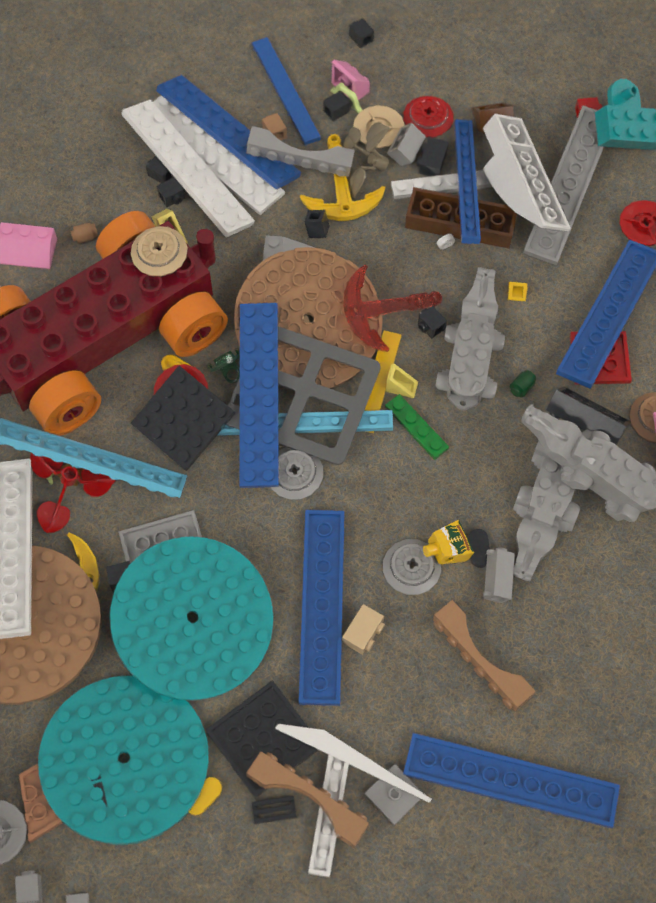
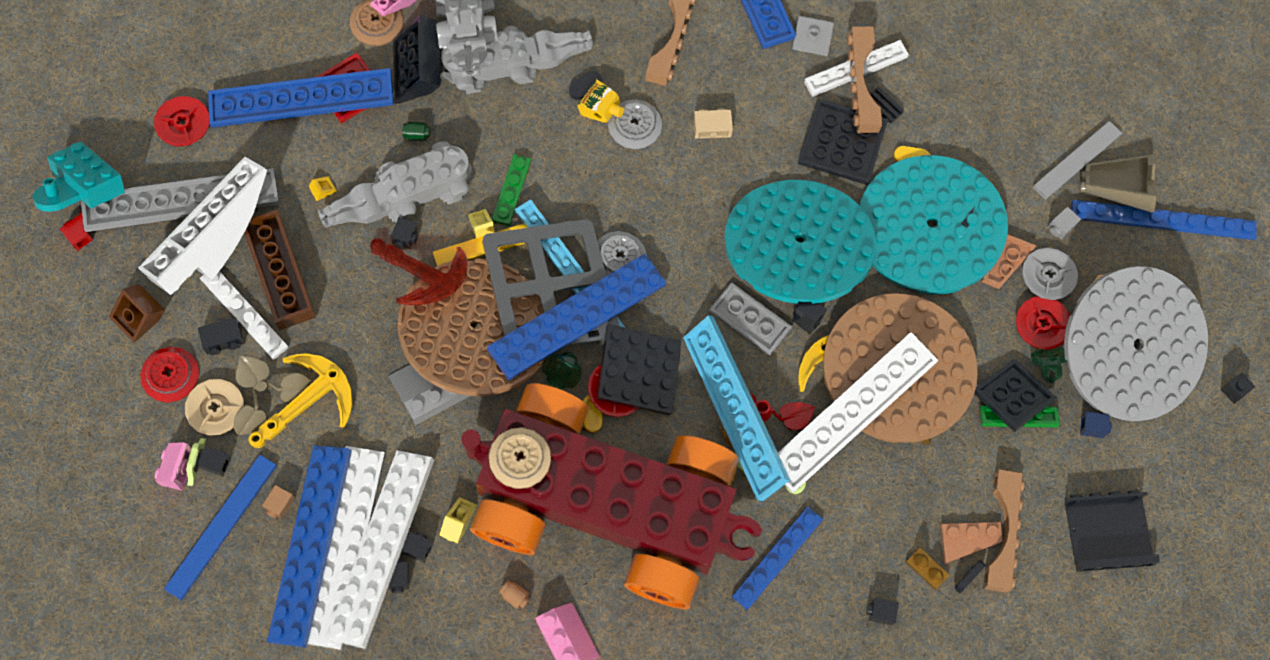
camera: 130 degrees left, 5 degrees up
(316, 224) = (367, 387): black brick -> none
(322, 608) = (713, 165): blue plate -> none
(331, 745) = (813, 88): white sticker -> none
(333, 160) = (312, 483): light grey arch -> none
(361, 33) = (102, 497): black brick -> none
(406, 144) = (220, 365): light grey brick -> none
(445, 241) = (310, 271): white tile -> none
(467, 182) = (237, 280): blue plate -> none
(499, 575) = (600, 54): light grey brick -> none

